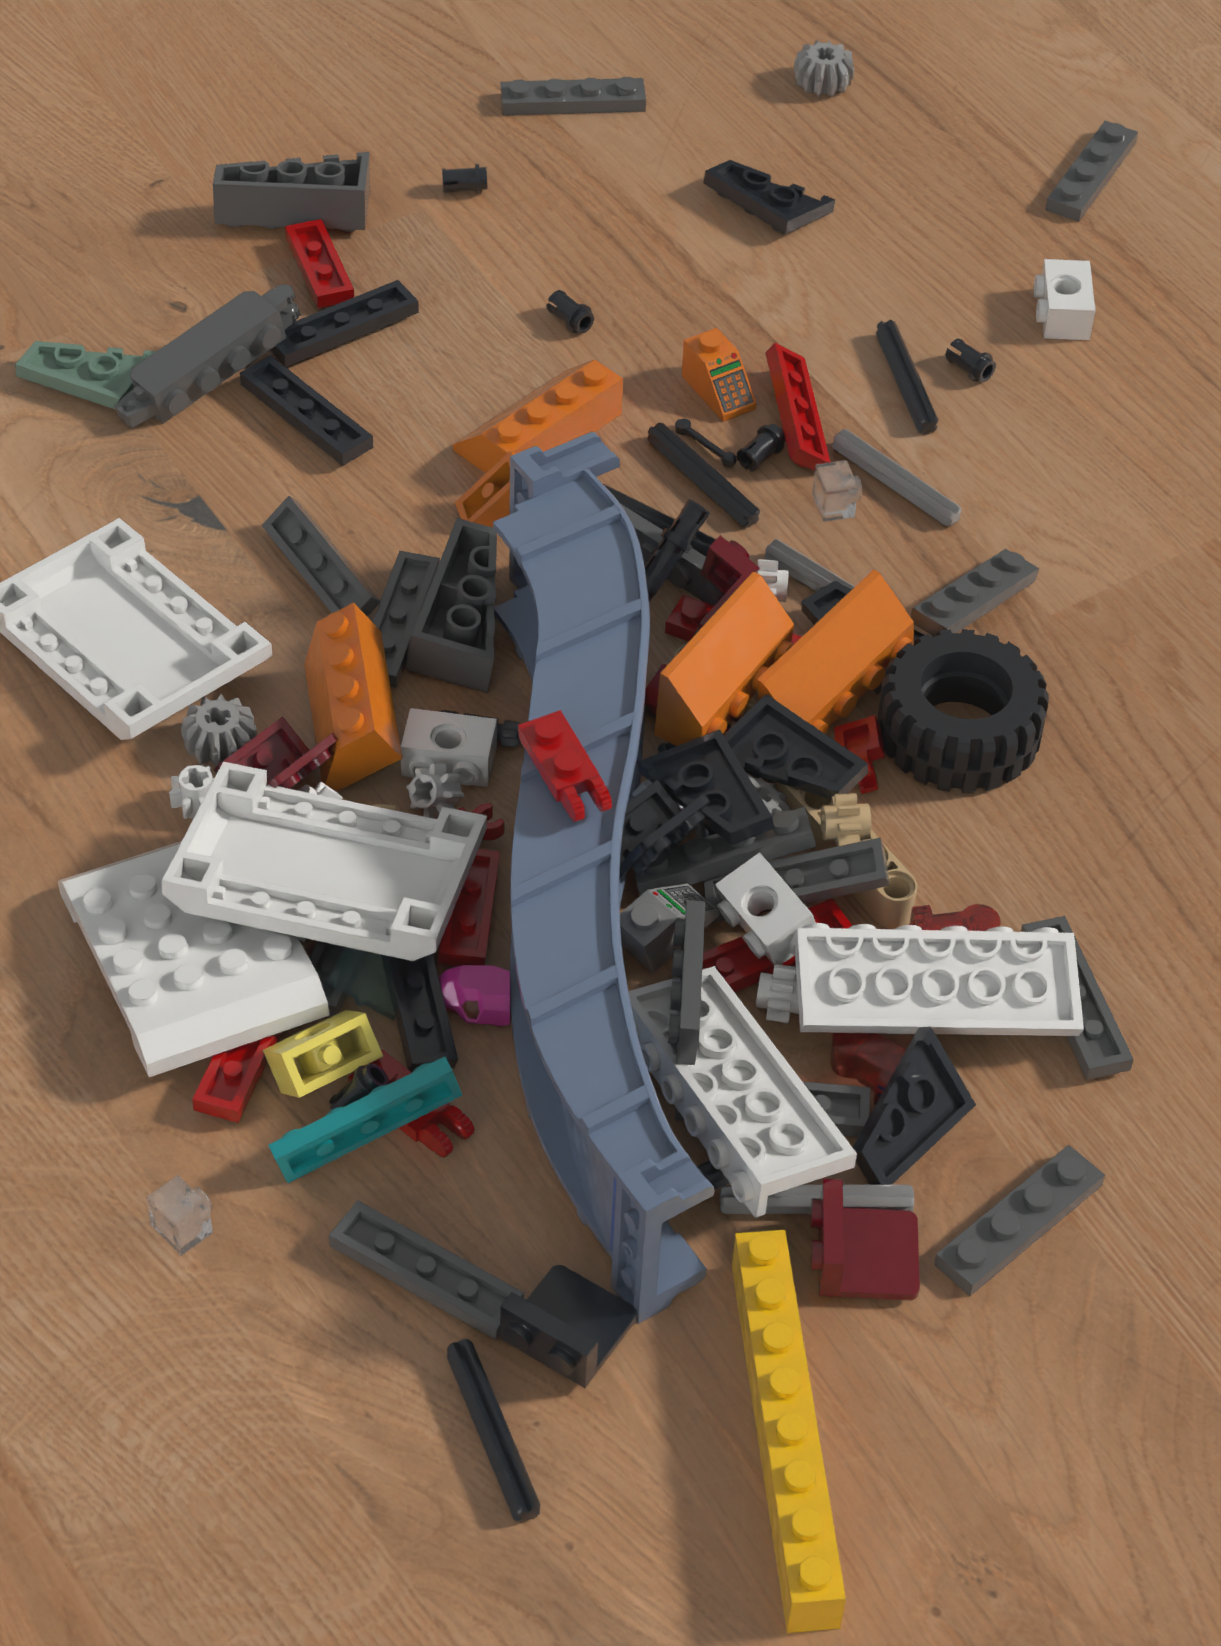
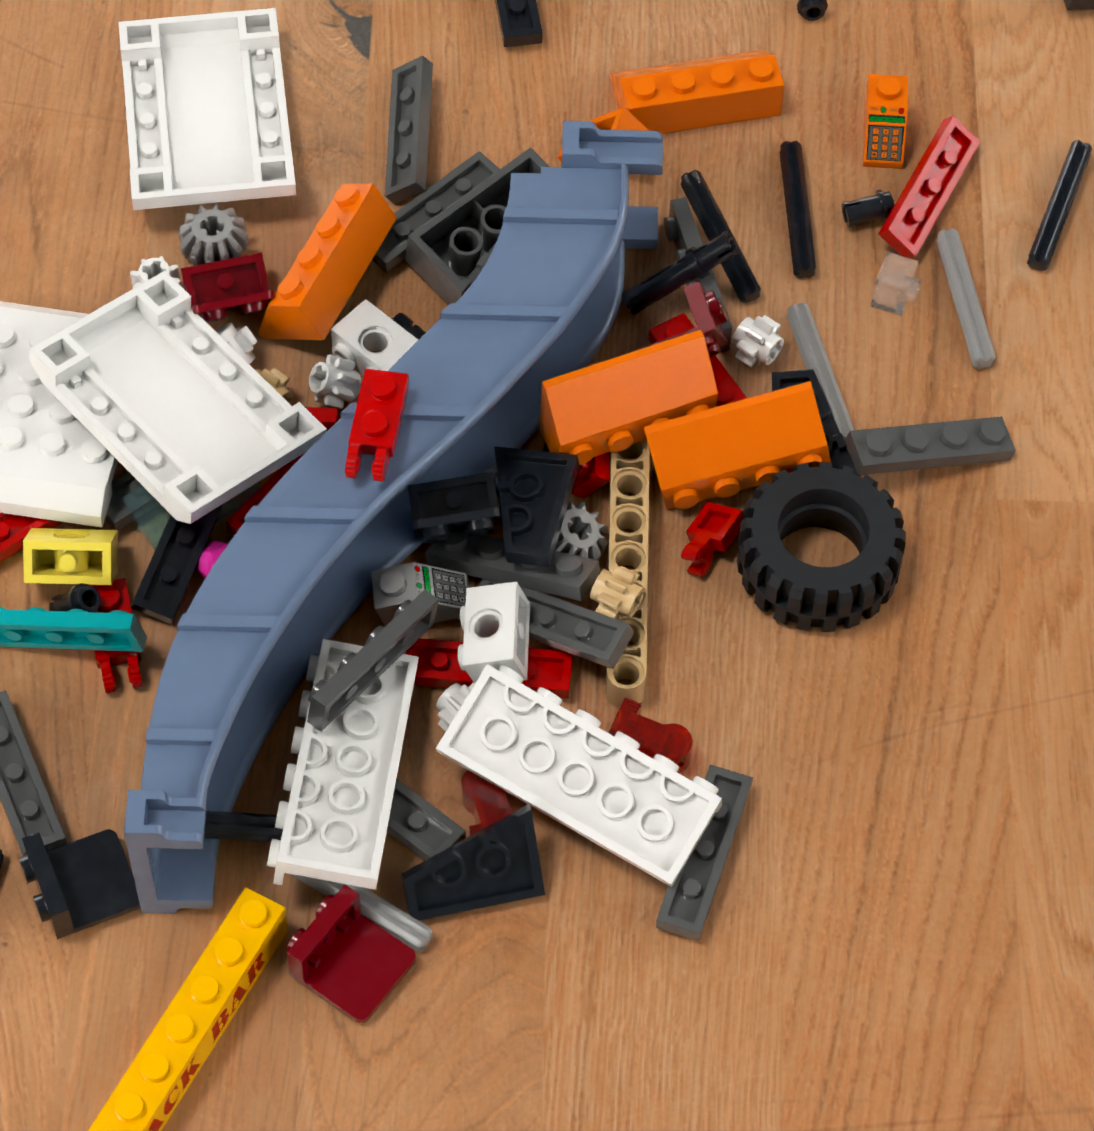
camera: 35 degrees right, 10 degrees up
(683, 427) = (822, 155): black hinge -> none
(791, 751) = (629, 505): black wing -> none
(1019, 1220) = (499, 1010): dark grey plate -> none

